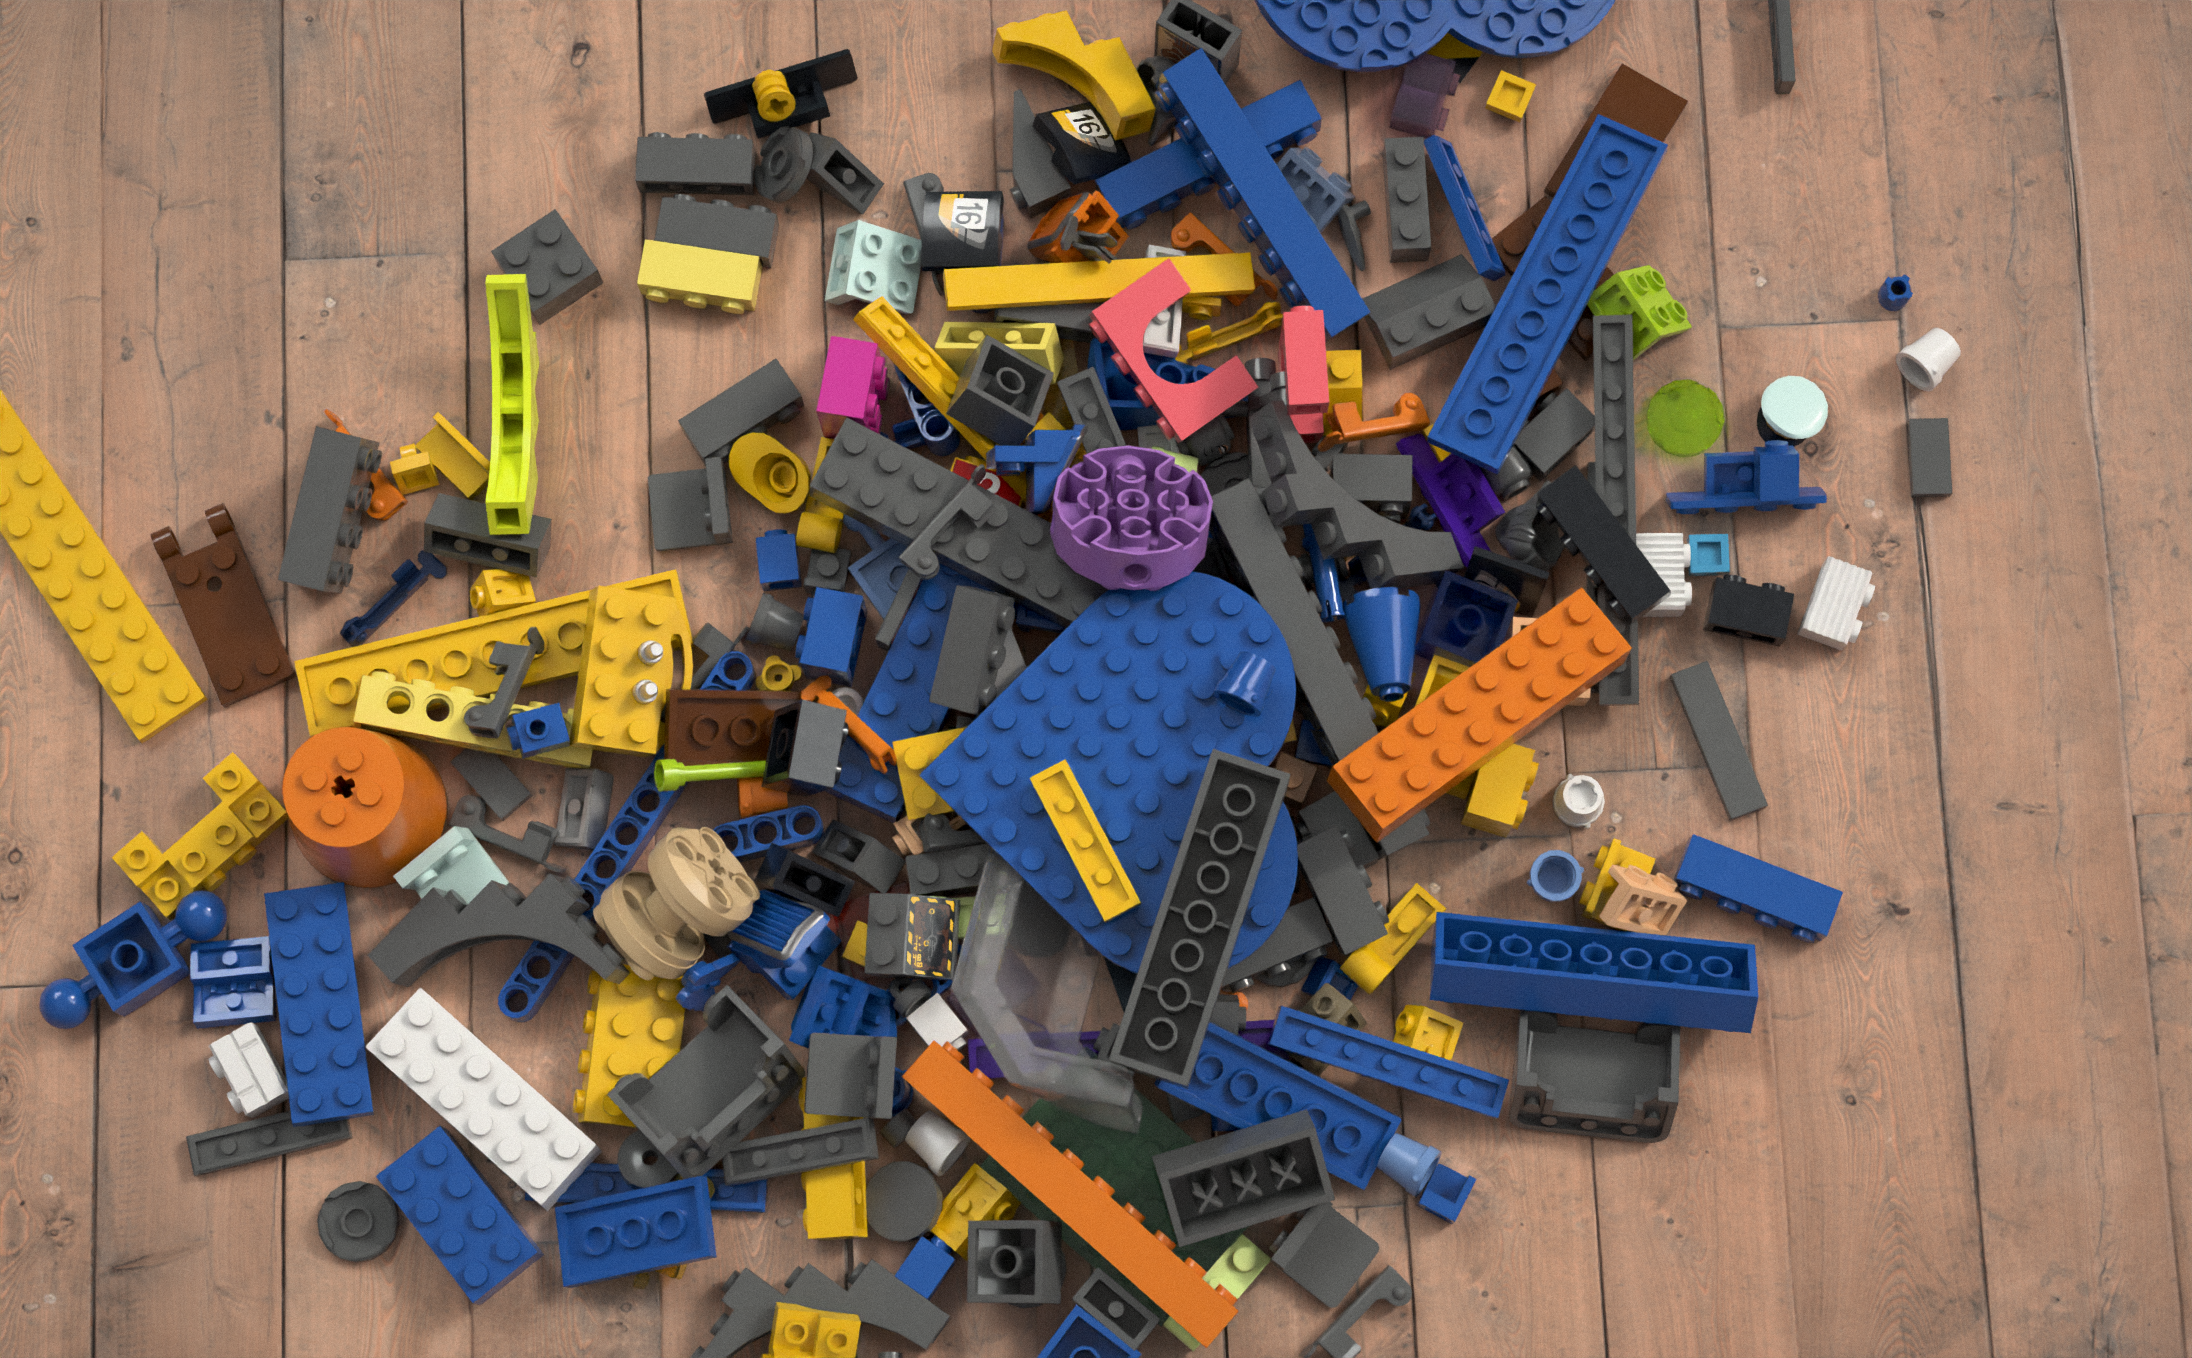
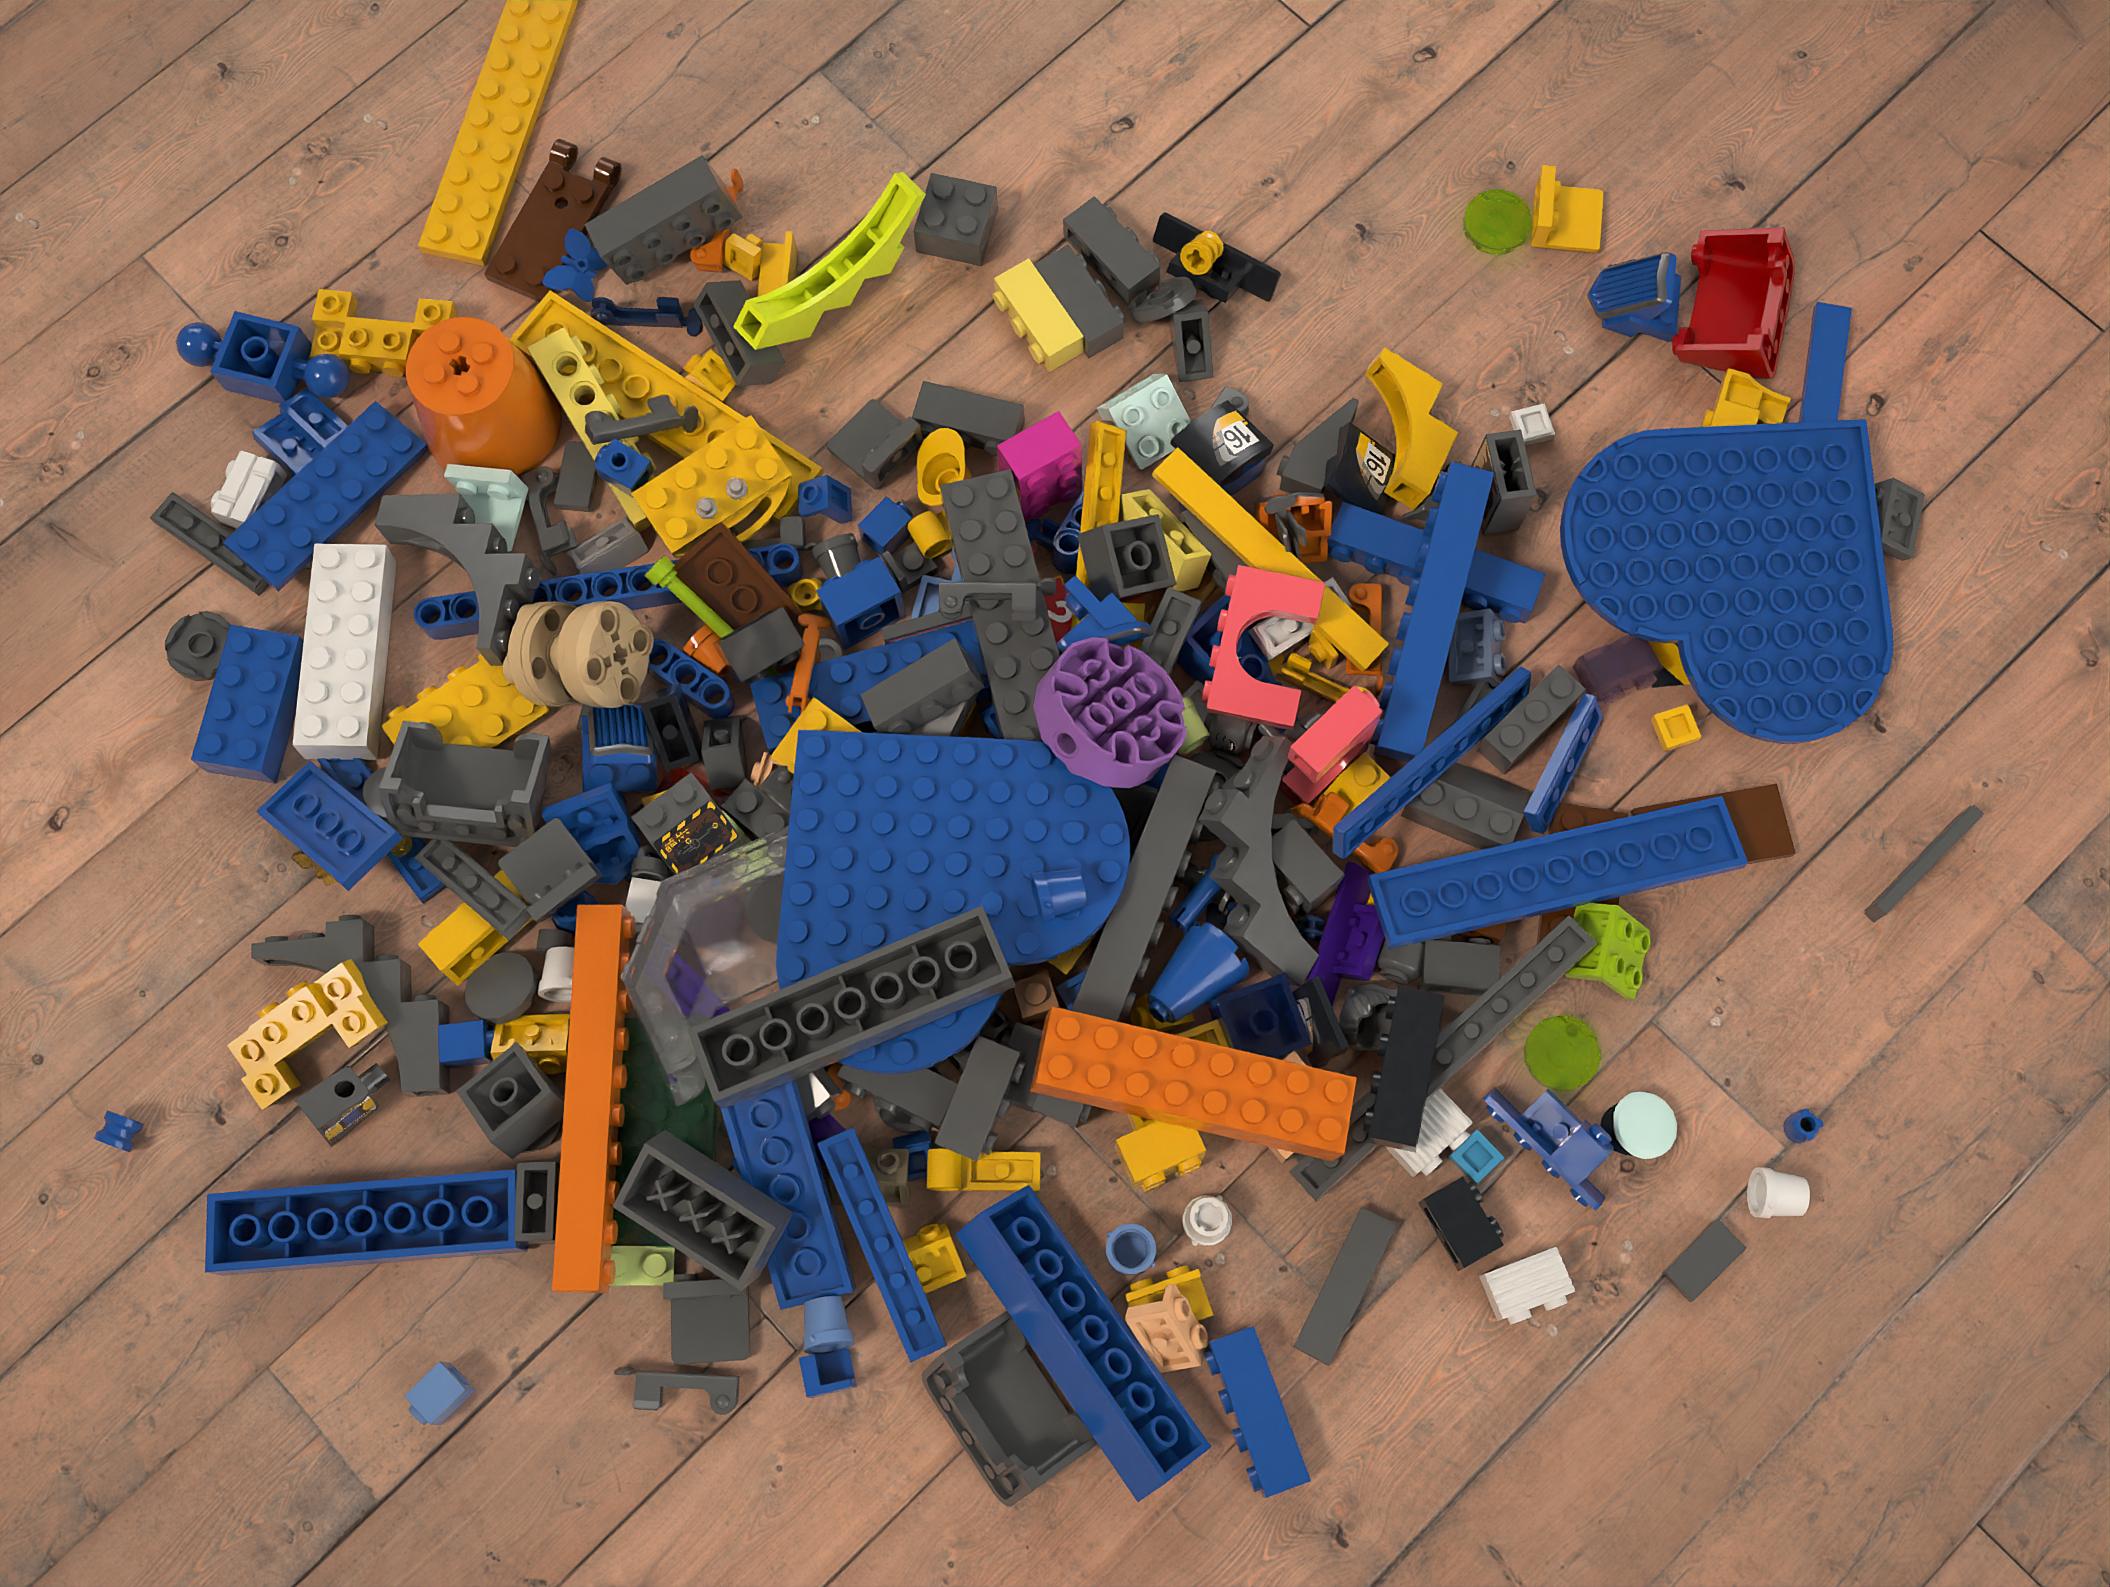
camera: 50 degrees right, 5 degrees down
(293, 616) = (579, 269): none -> blue piece
(701, 980) = (544, 720): blue animal -> none
(707, 590) = (825, 497): none -> blue bracket
(1085, 841) = (843, 879): yellow plate -> none
(1380, 307) = (1429, 764): none -> blue tile

